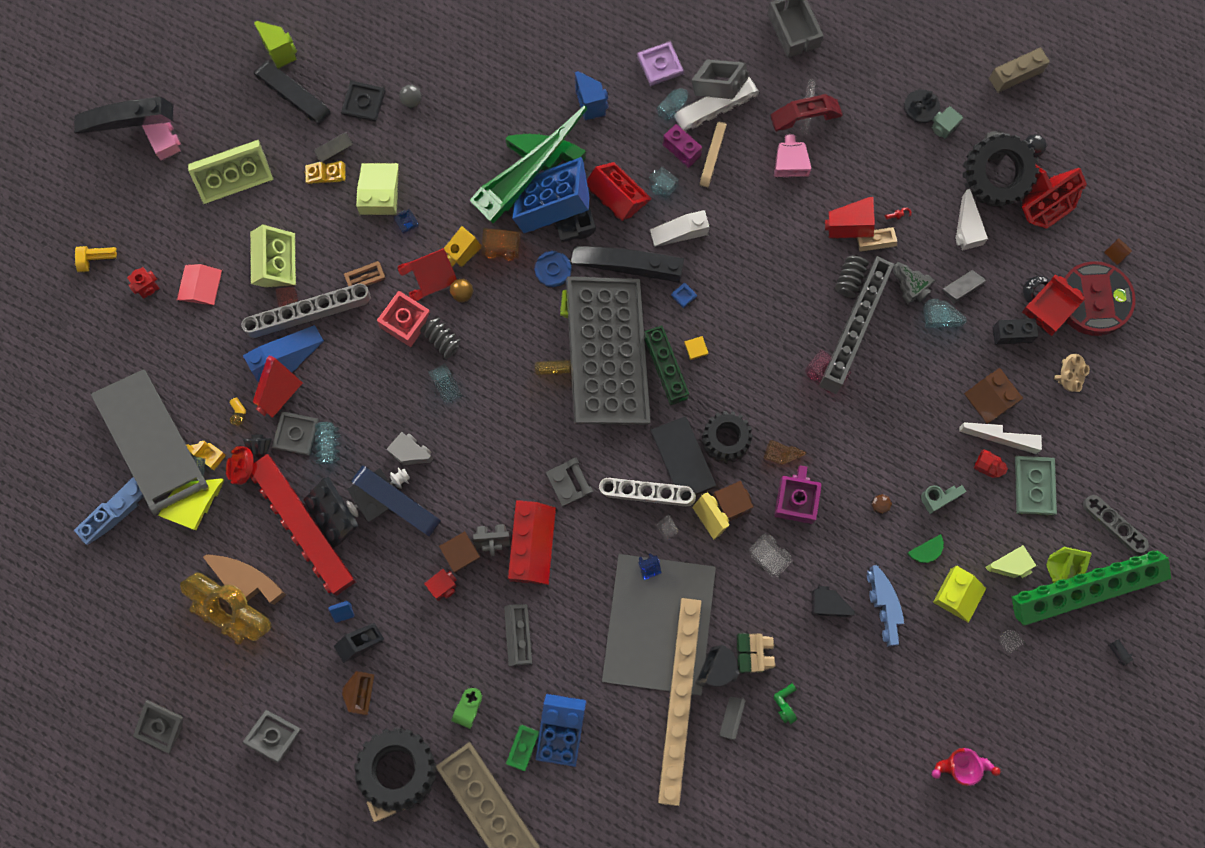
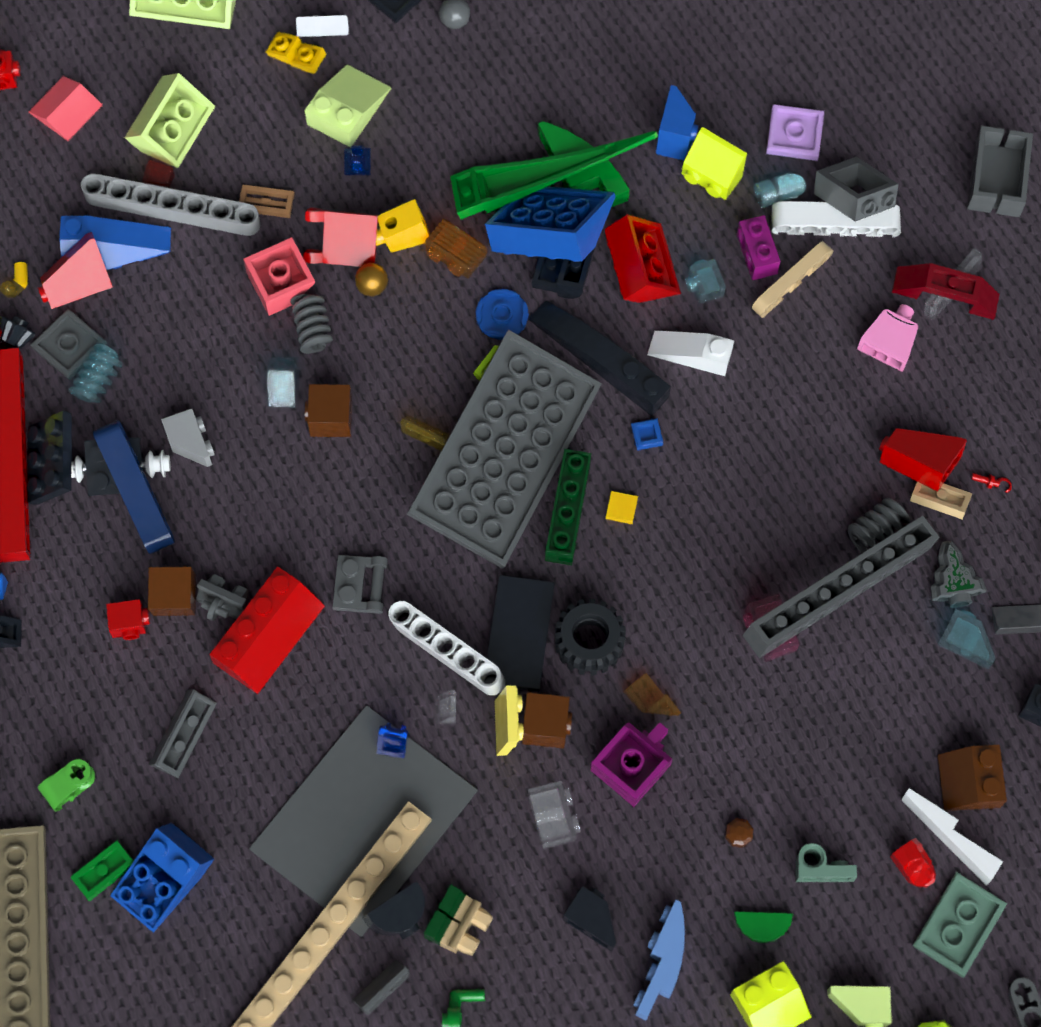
camera: 30 degrees right, 5 degrees down
(486, 386) = (329, 410): none -> reddish brown head
(626, 108) = (714, 164): none -> neon yellow slope

